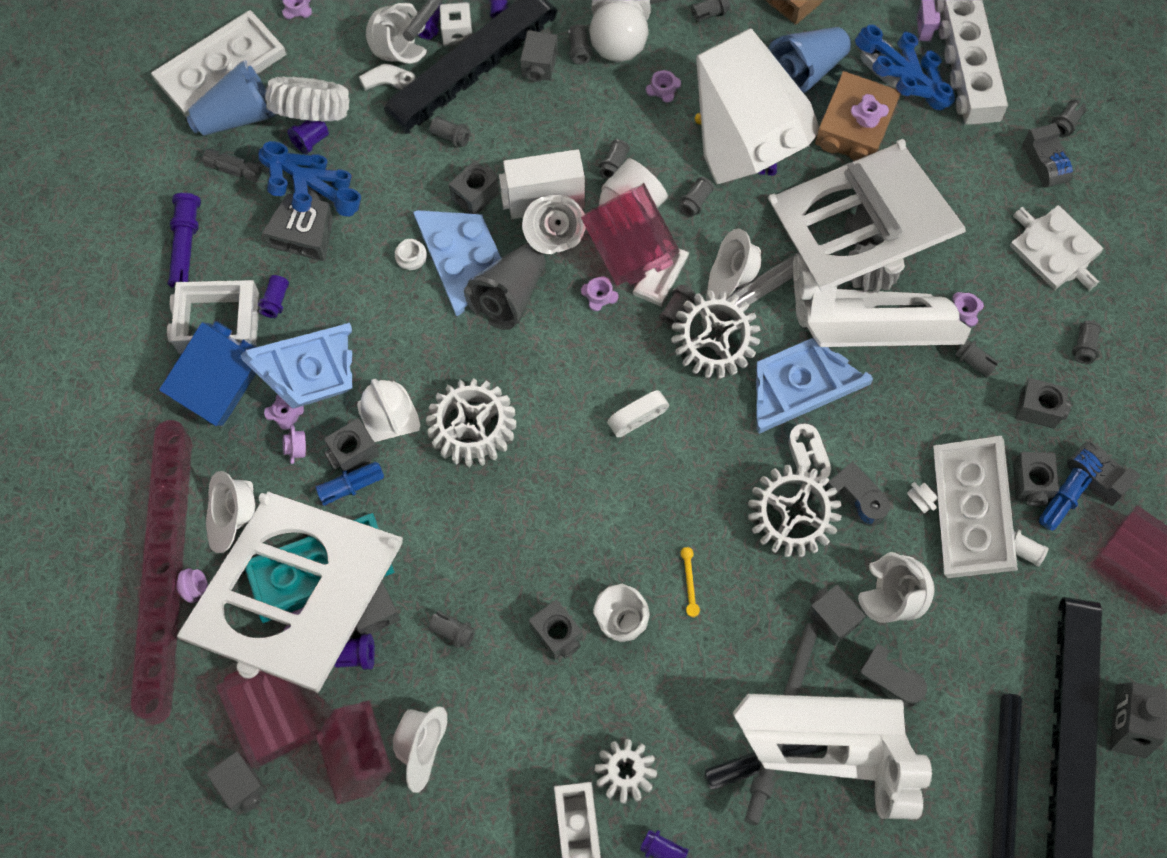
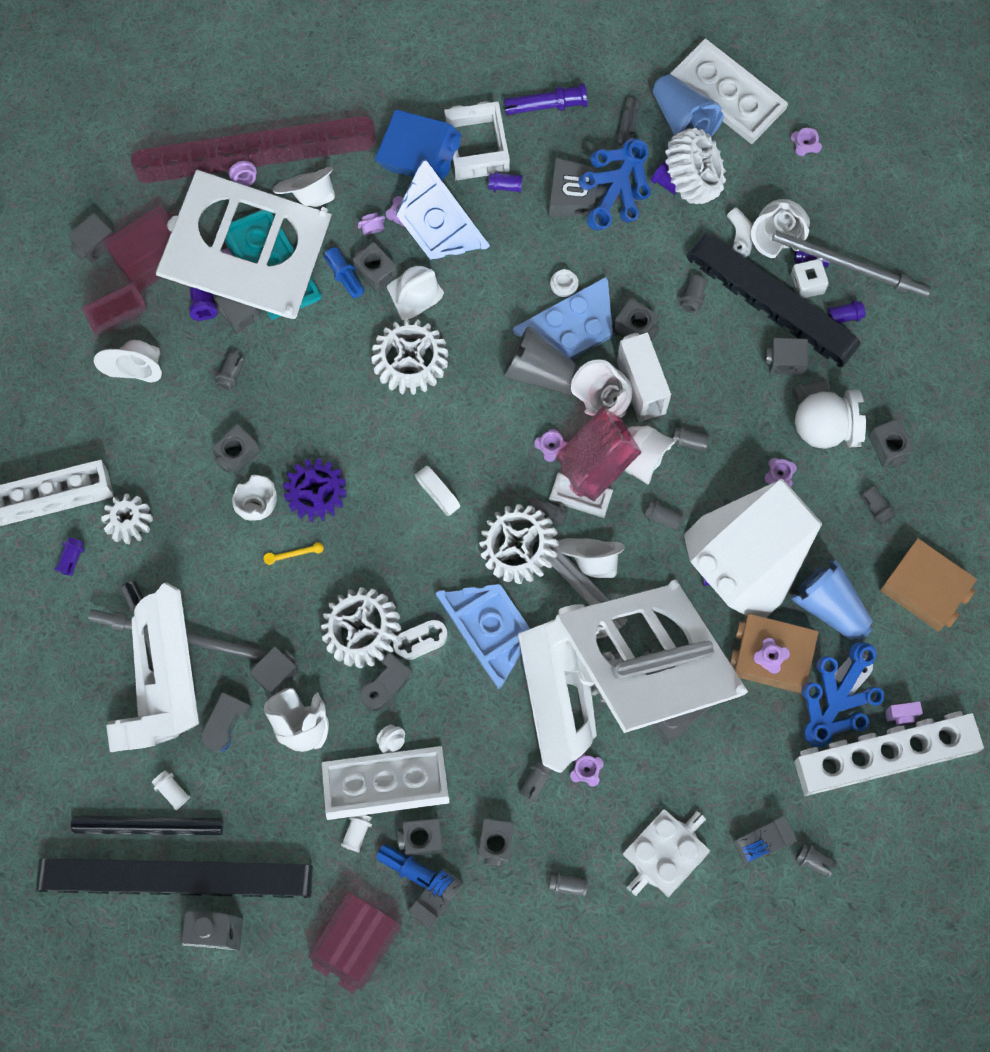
camera: 80 degrees right, 5 degrees up
(606, 545) = (326, 486): none -> dark purple gear
(966, 750) = (170, 789): none -> white pin

